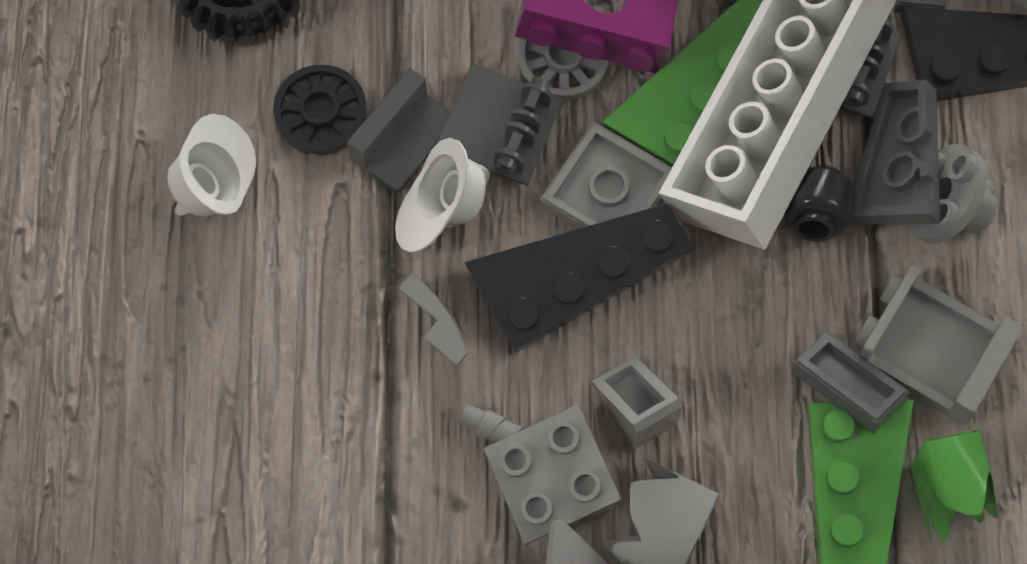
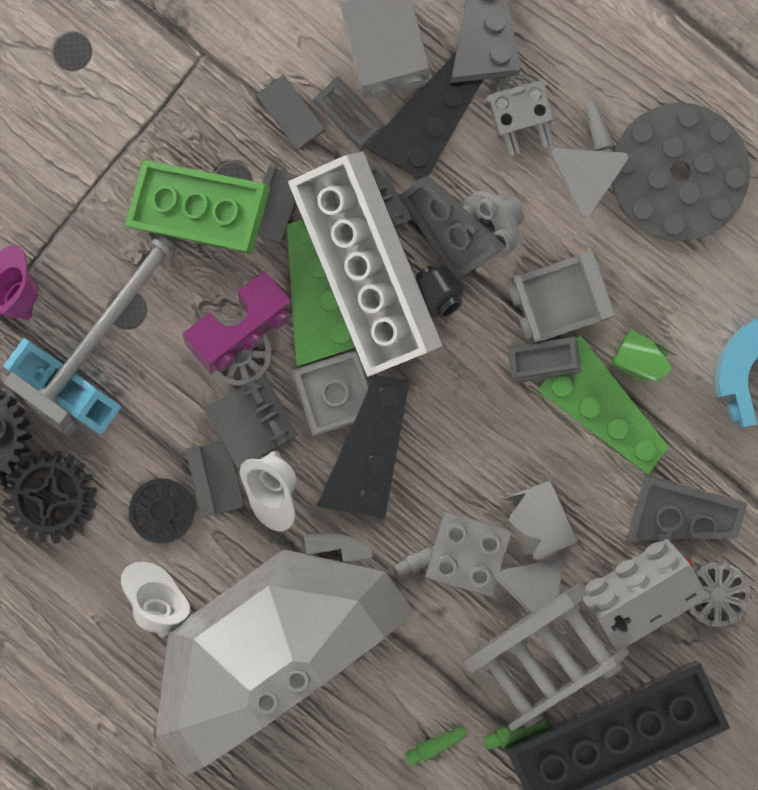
camera: 45 degrees left, 15 degrees up
(262, 298) = (267, 650): none -> light grey windscreen
(638, 401) = (463, 477): light grey slope -> none

